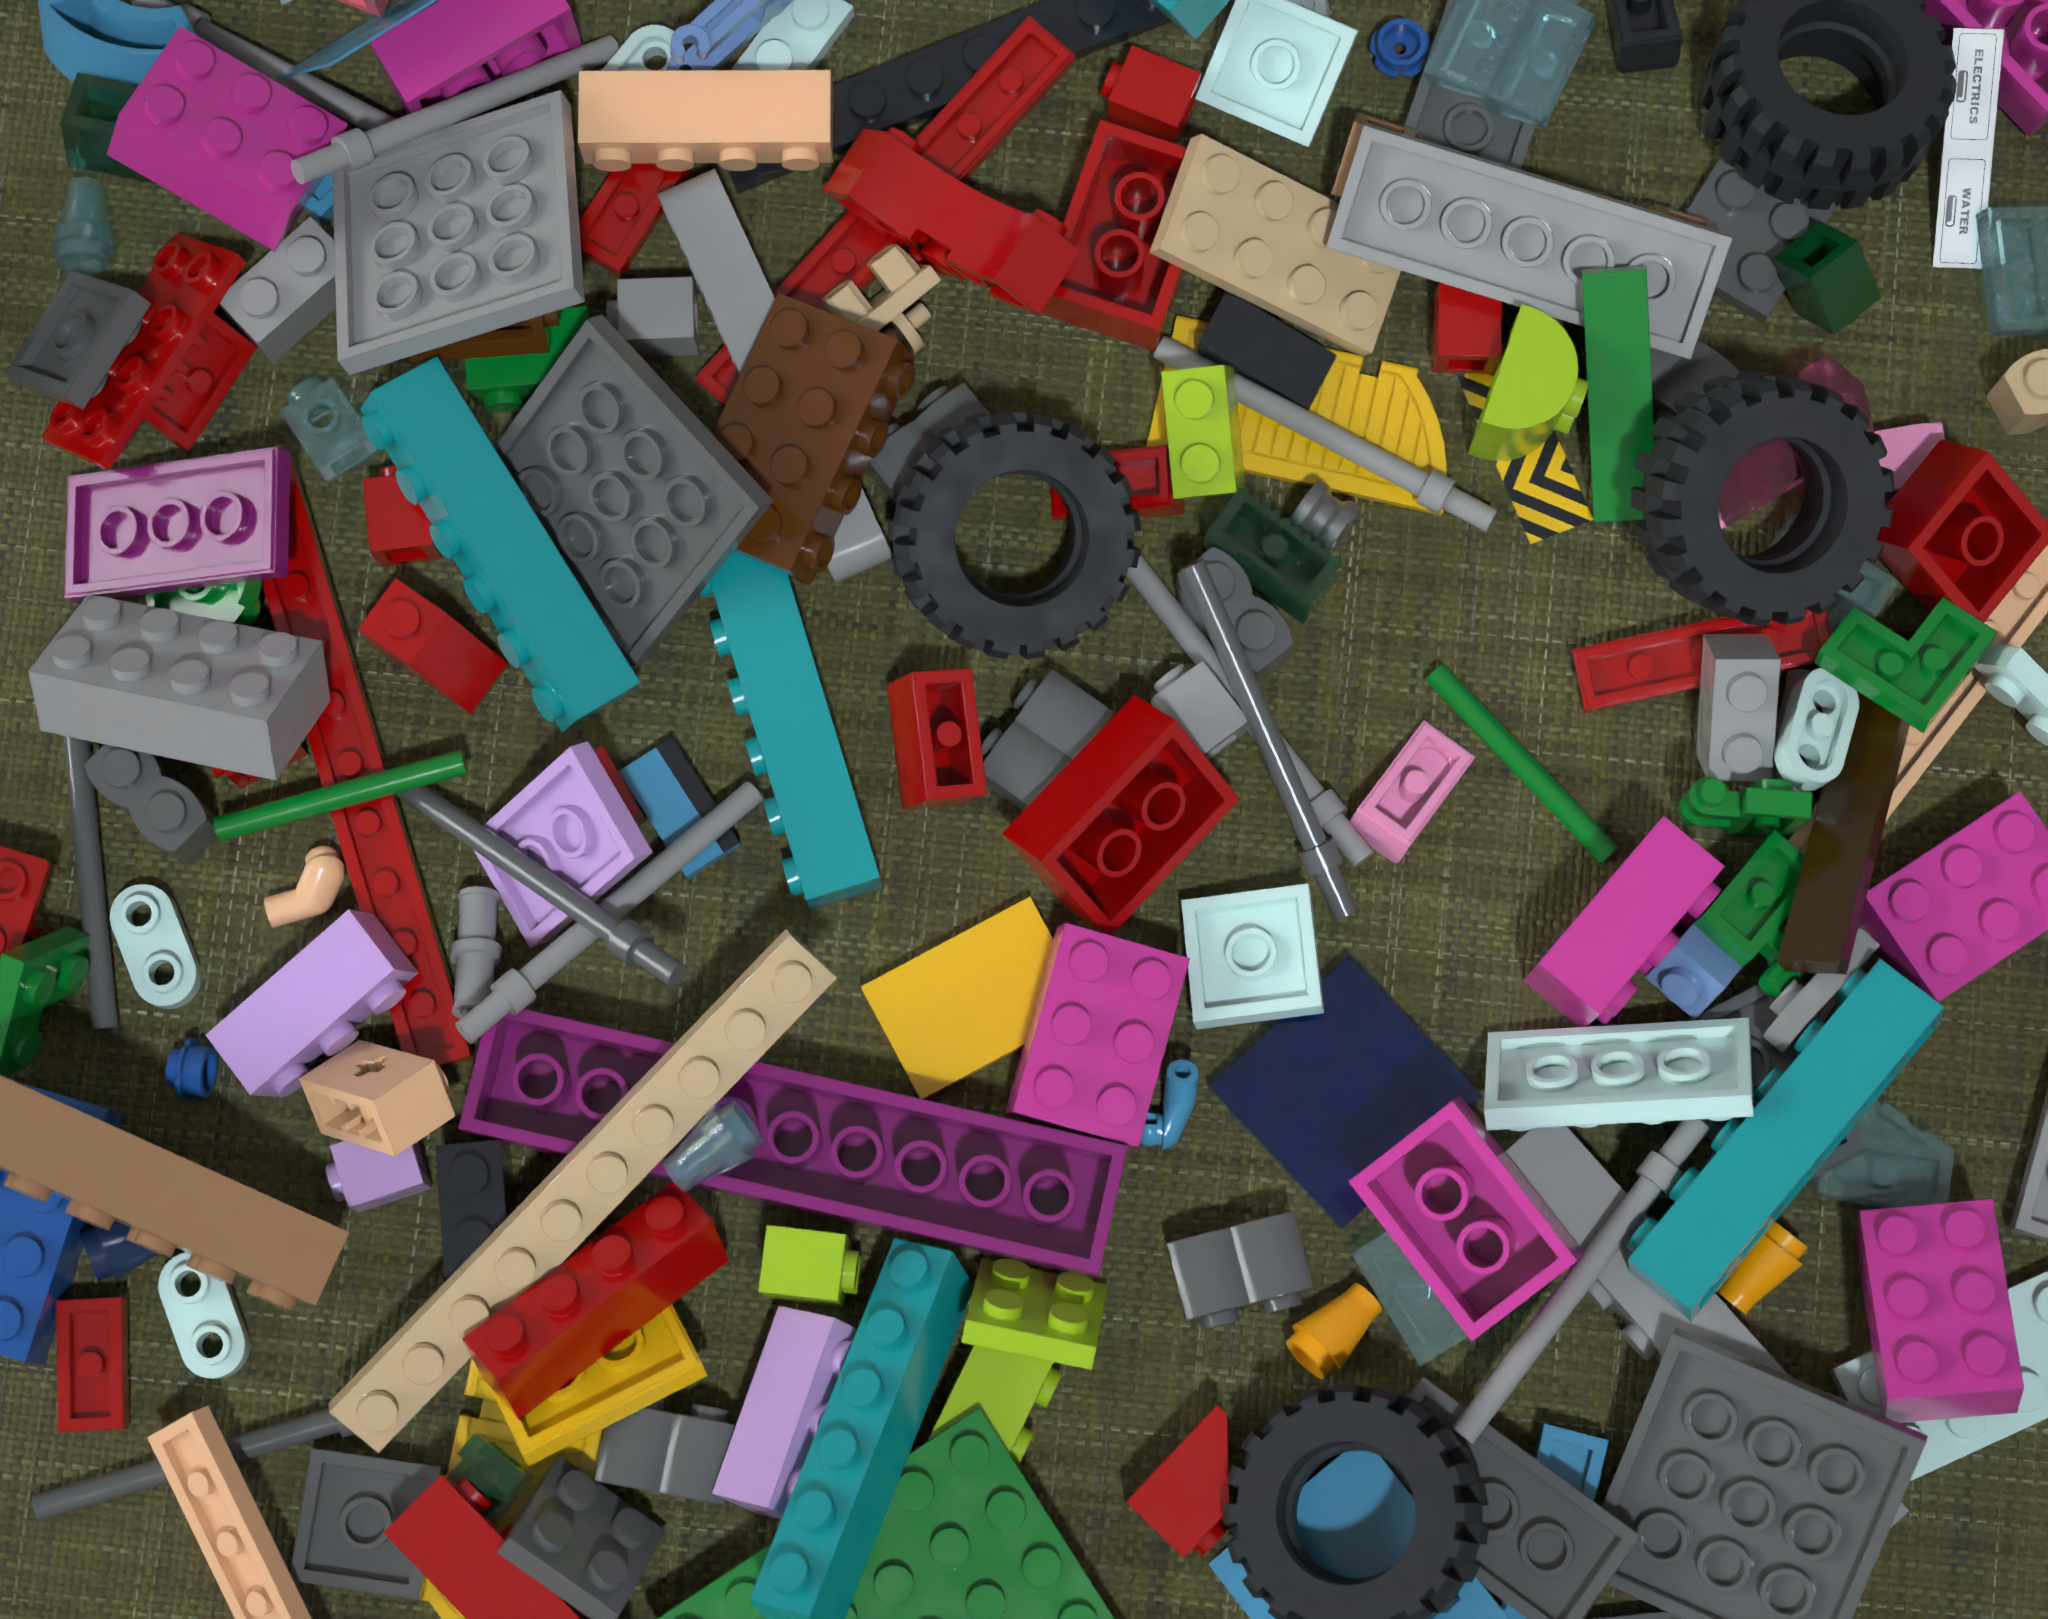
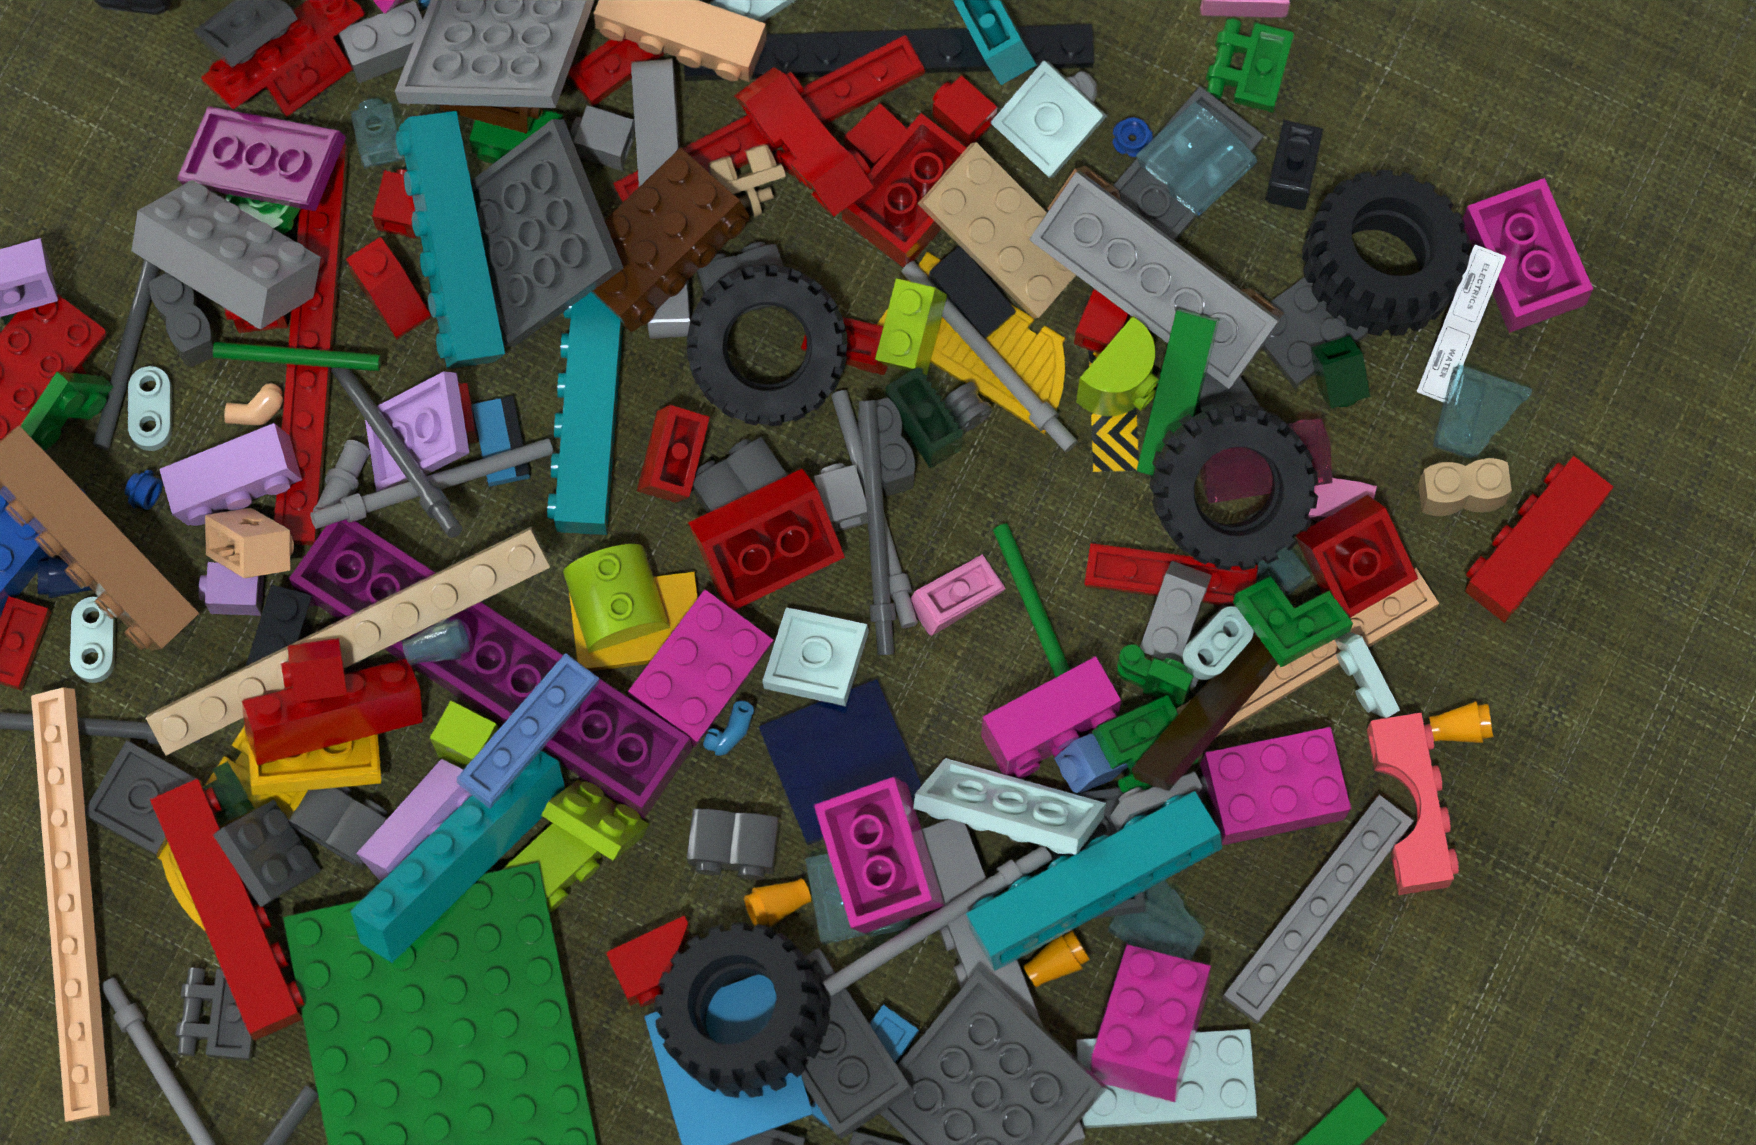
camera: 20 degrees right, 5 degrees down
(555, 1257) = (315, 670): none -> red brick
(895, 1228) = (527, 730): none -> medium blue tile
(934, 977) = (615, 596): none -> lime brick
(1044, 175) = (874, 135): none -> red brick

